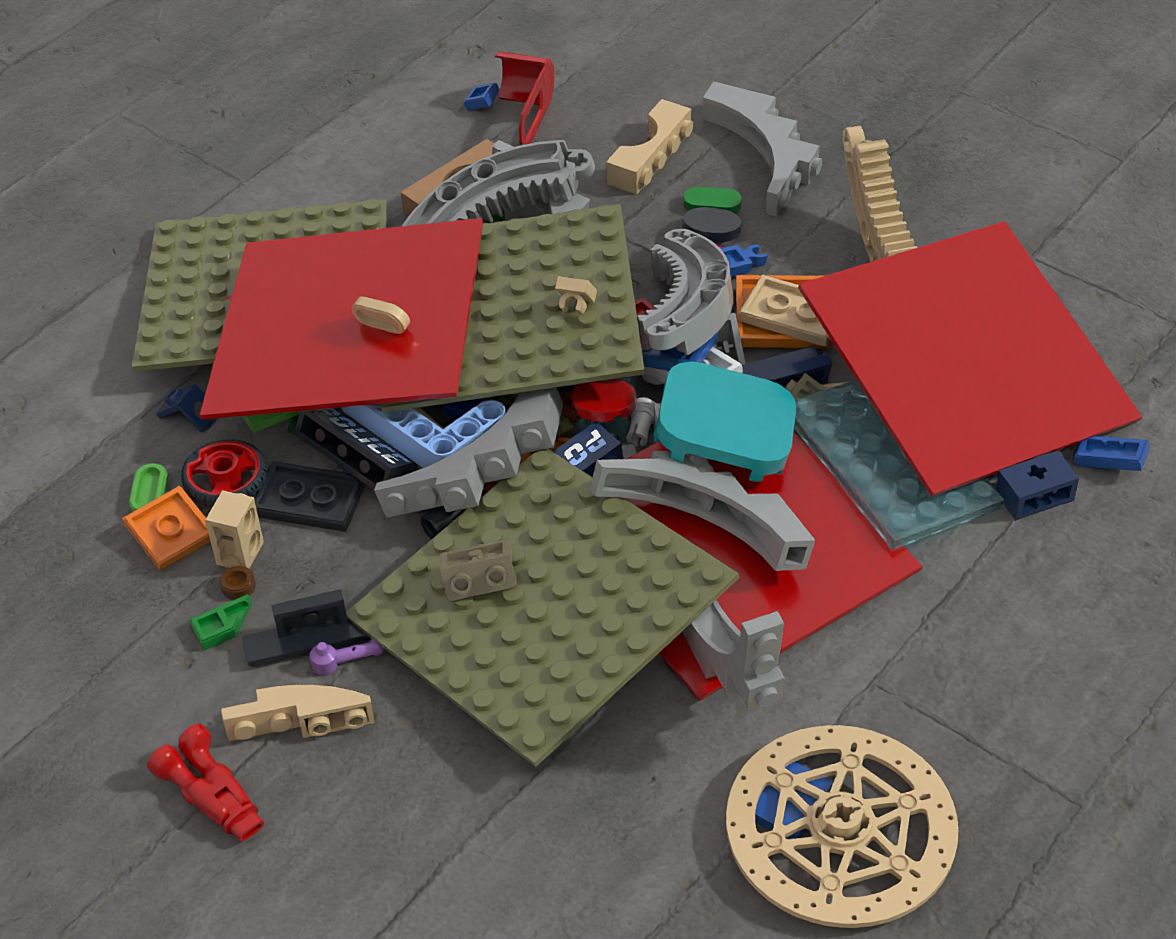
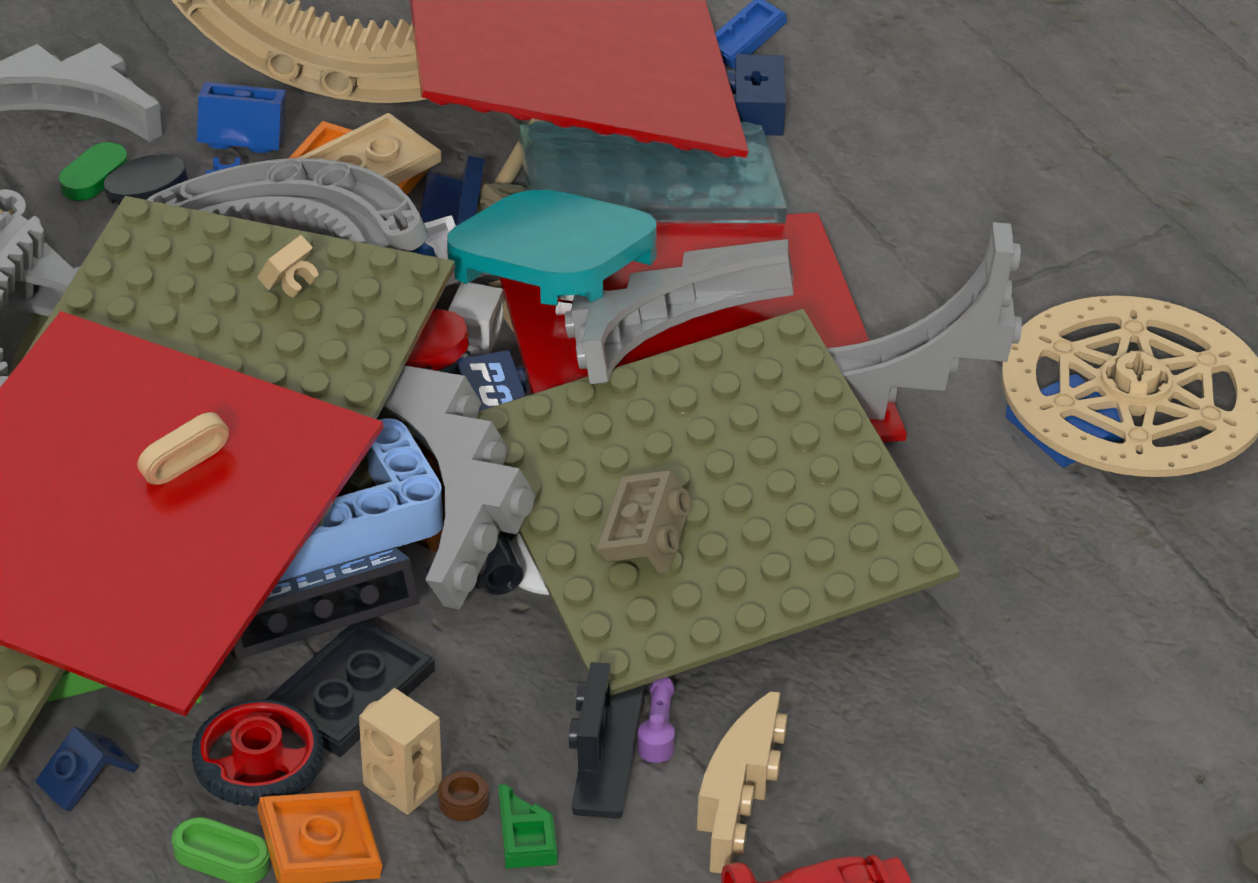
camera: 70 degrees left, 5 degrees down
(802, 237) = (241, 117): none -> blue brick

